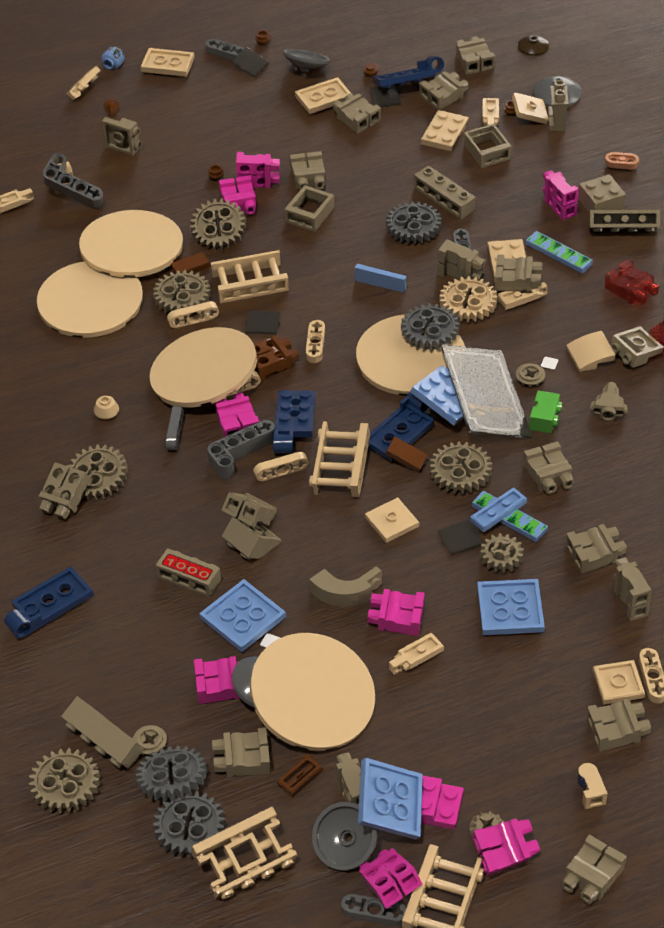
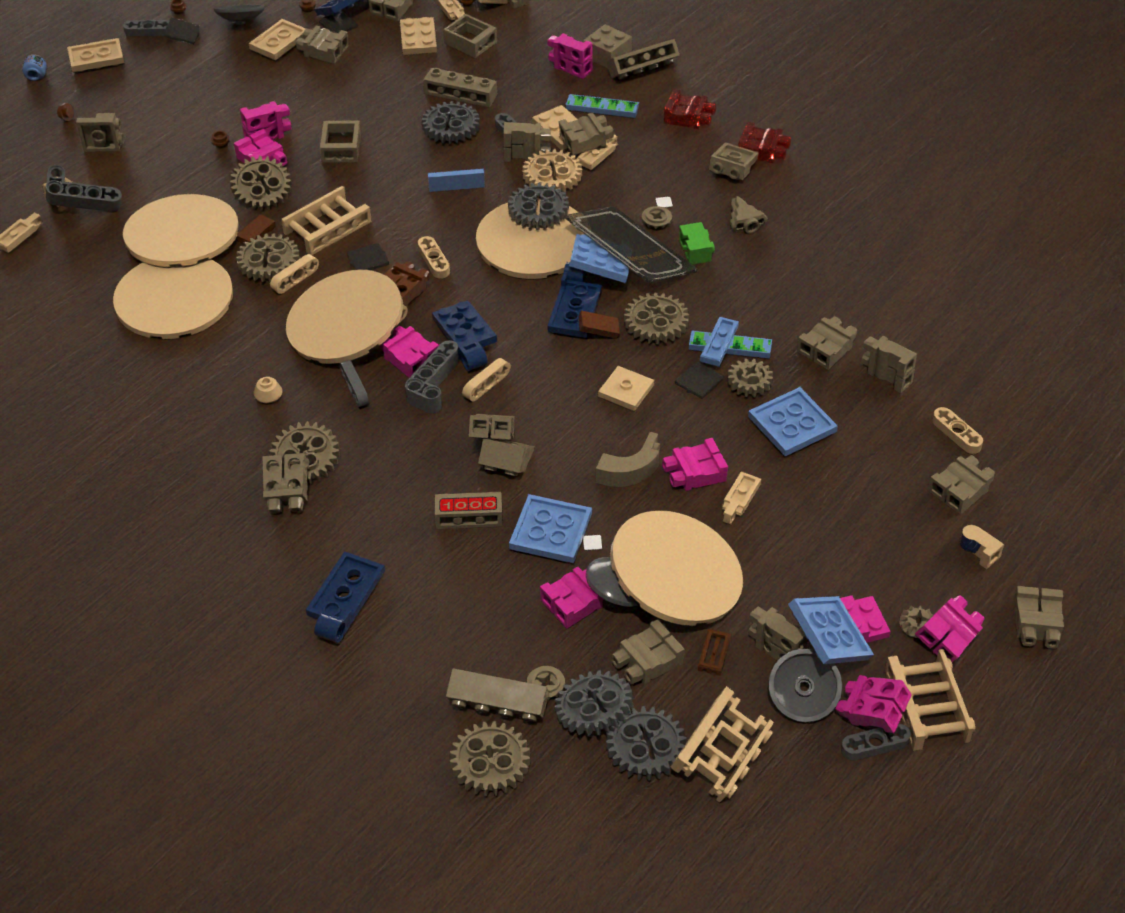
camera: 30 degrees left, 0 degrees up
(82, 84) = (18, 99): tan hinge -> none
(308, 174) = (313, 108): dark tan hips -> none
(356, 468) = (556, 336): tan fence -> none
(548, 467) = (735, 289): dark tan hips -> none
(590, 351) = (695, 178): tan slope -> none
(618, 682) = (934, 447): tan plate -> none
(622, 160) = (600, 12): nougat plate -> none

